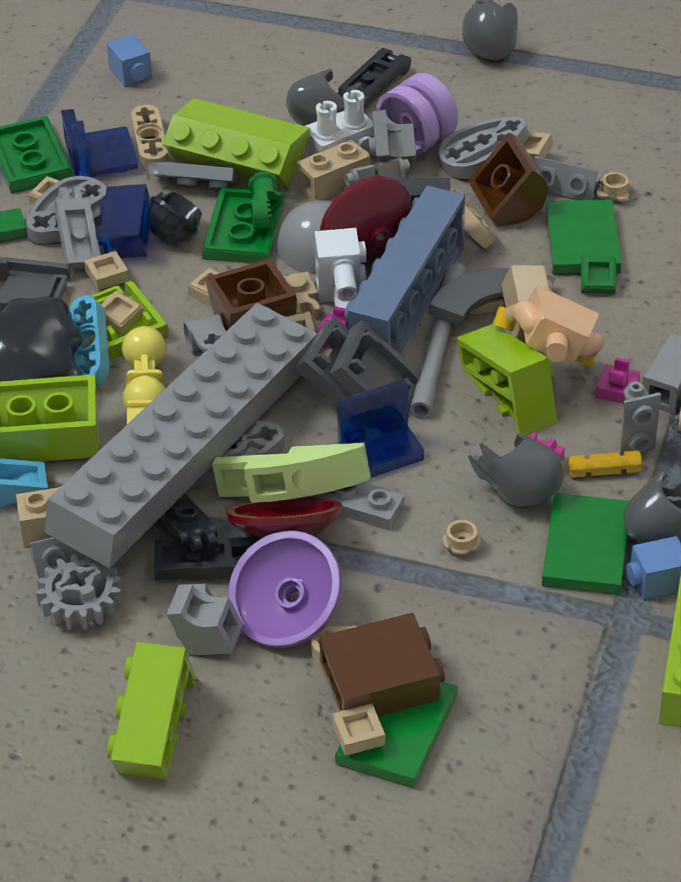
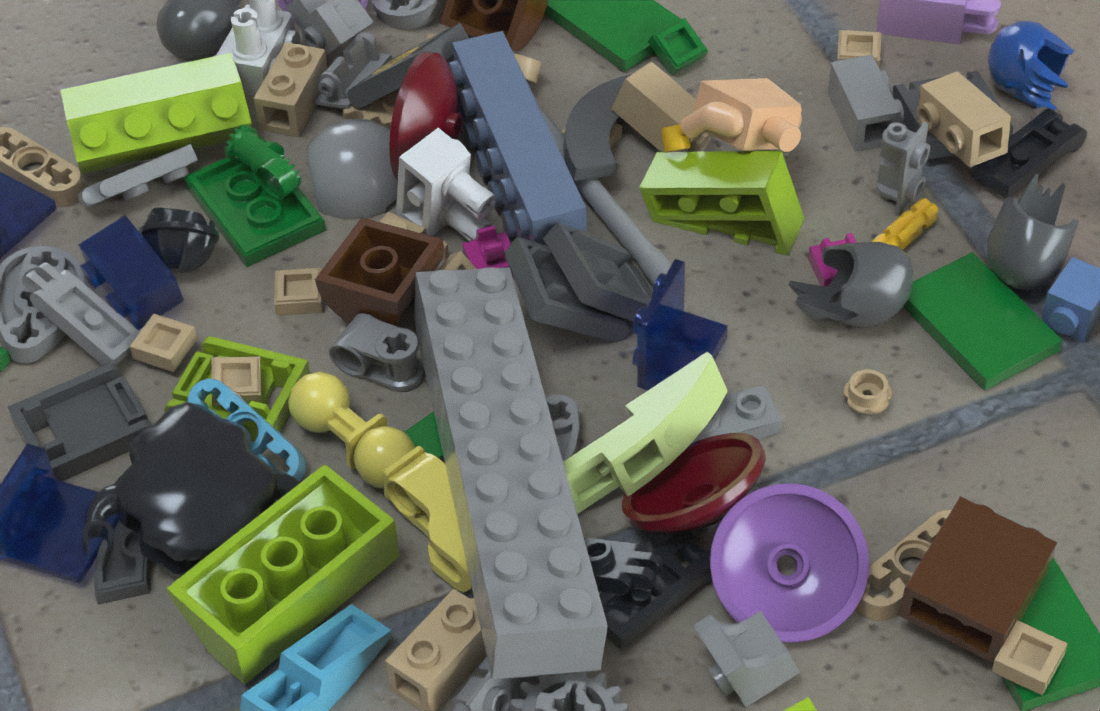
camera: 40 degrees left, 5 degrees up
(615, 380) = (821, 143): dark pink tile -> none

